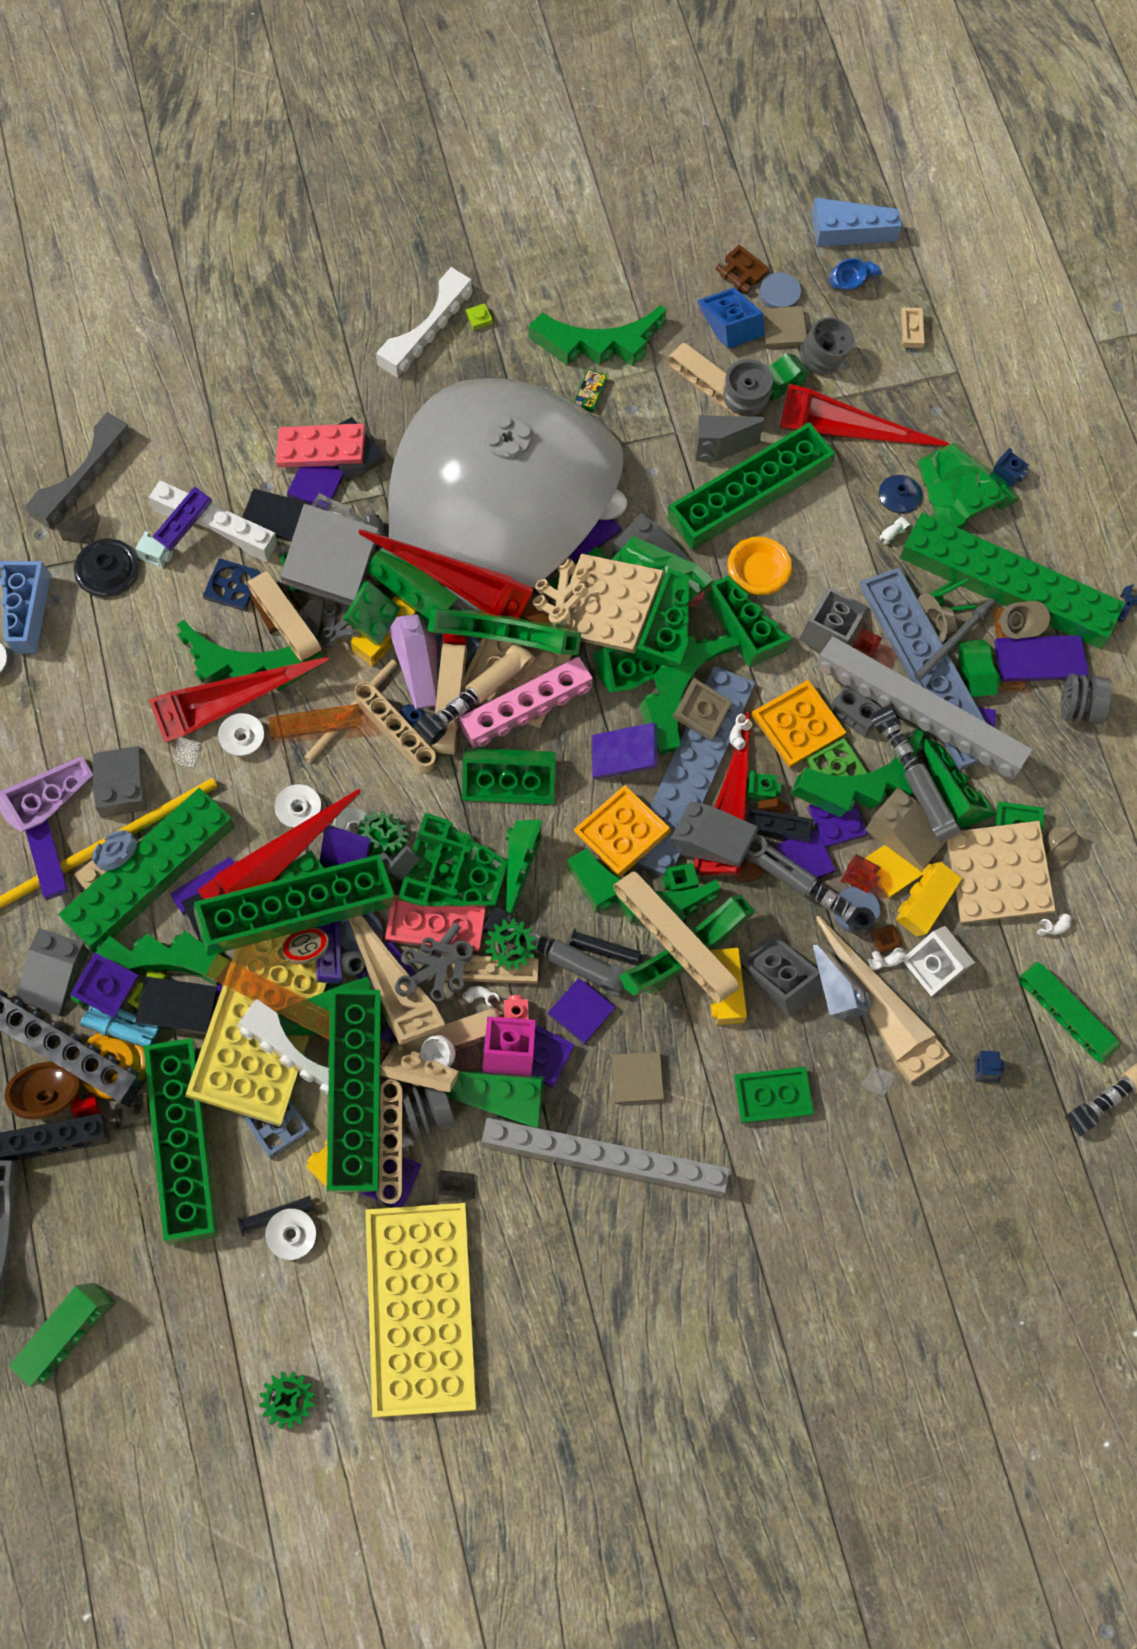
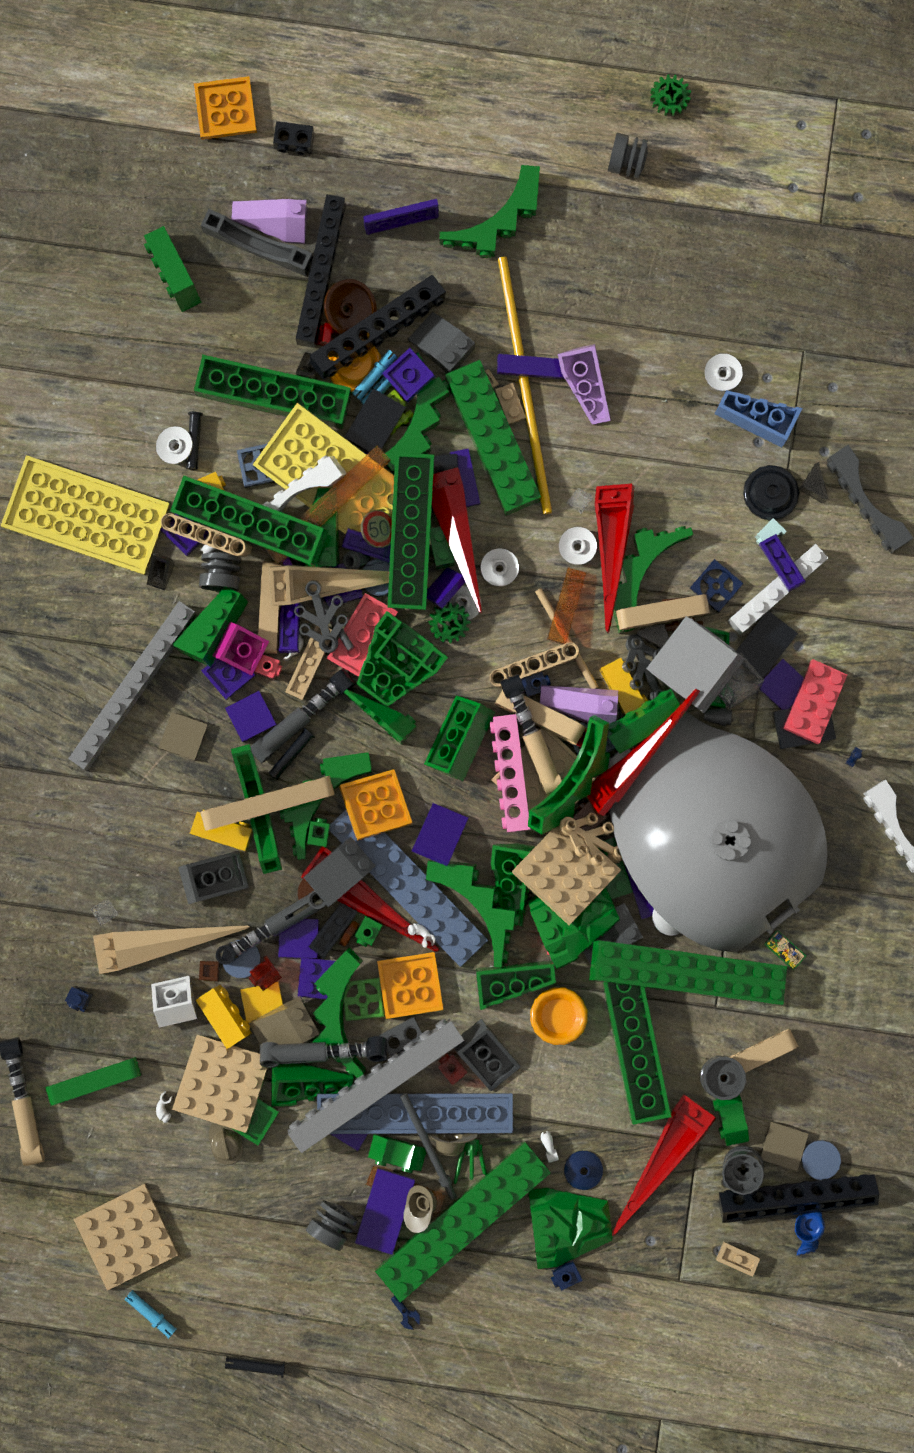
camera: 115 degrees right, 15 degrees up
(115, 850) = (514, 417): sand blue tile -> none
(118, 782) = (578, 441): dark grey slope -> none
(293, 1410) = (57, 400): green gear -> none
(363, 390) = (855, 755): none -> dark blue bar
(371, 613) = (632, 679): green plate -> none
(402, 863) = (418, 626): dark grey panel -> none
(412, 1069) = (247, 570): tan wing -> none
(438, 1049) = (254, 592): white hair -> none
(465, 1004) = (289, 629): none -> dark purple tile
(479, 317) = (896, 885): lime plate -> none
(500, 938) = (325, 678): green gear -> none
(598, 345) = (824, 975): green arch -> none
(659, 457) = (688, 973): none -> green brick
(667, 626) = (521, 906): green wedge -> none
(702, 709) = (449, 910): dark tan tile -> none
(725, 435) = (689, 1037): dark grey slope -> none
(732, 317) = (809, 1103): blue slope -> none
(744, 263) = (859, 1141): reddish brown plate -> none
(773, 1095) = (127, 829): green plate -> none
(793, 236) = (808, 1203): none -> black brick
(842, 992) = (182, 913): slope -> none
(853, 223) = (864, 1255): medium blue wedge -> none
(893, 959) = (193, 955): white arm -> none

